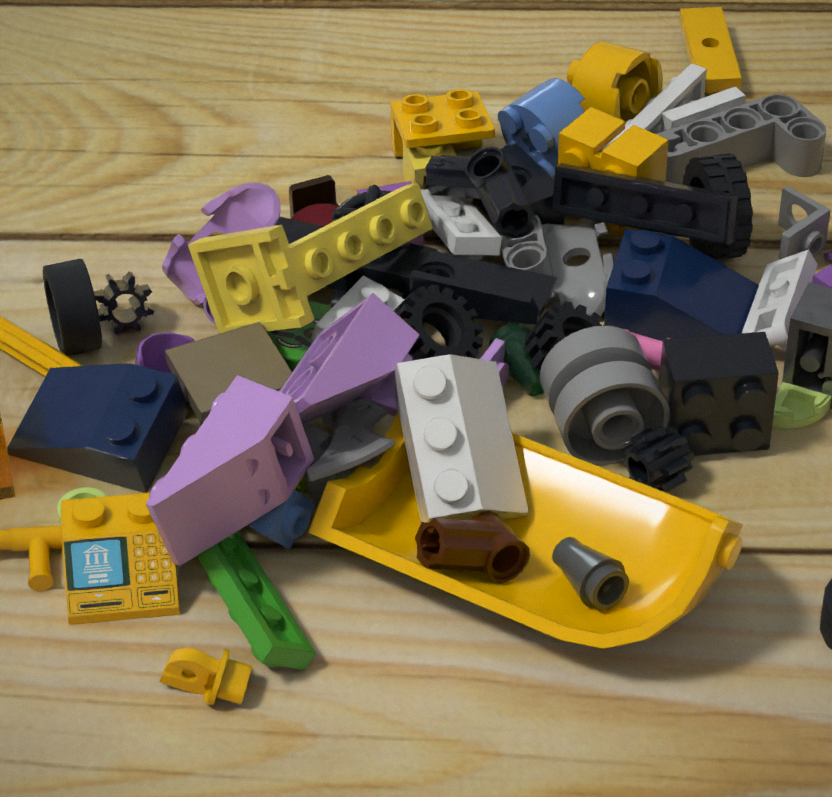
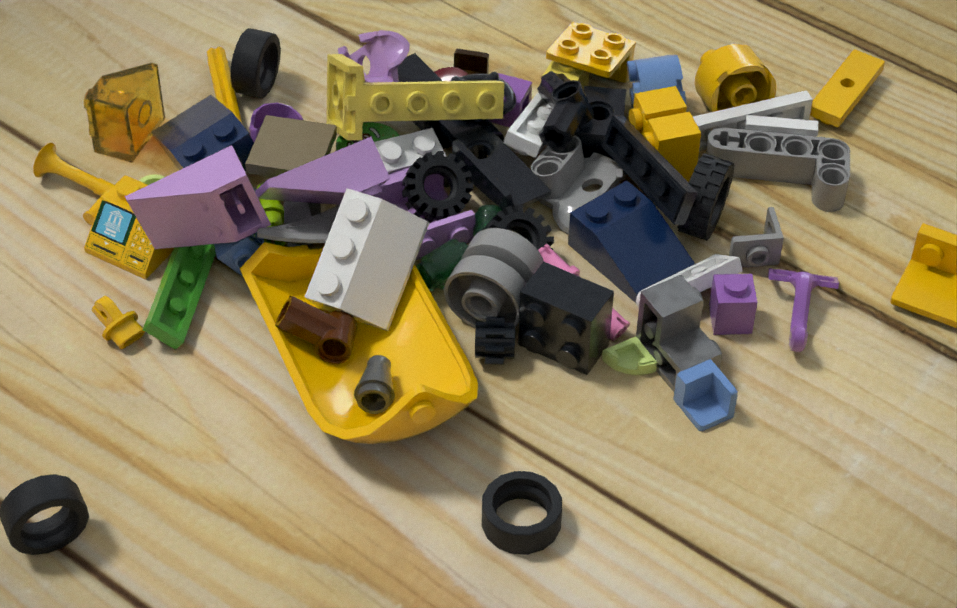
camera: 35 degrees right, 5 degrees up
(137, 302) = (284, 80): black gear -> none
(524, 405) = (440, 263): none -> clear green brick

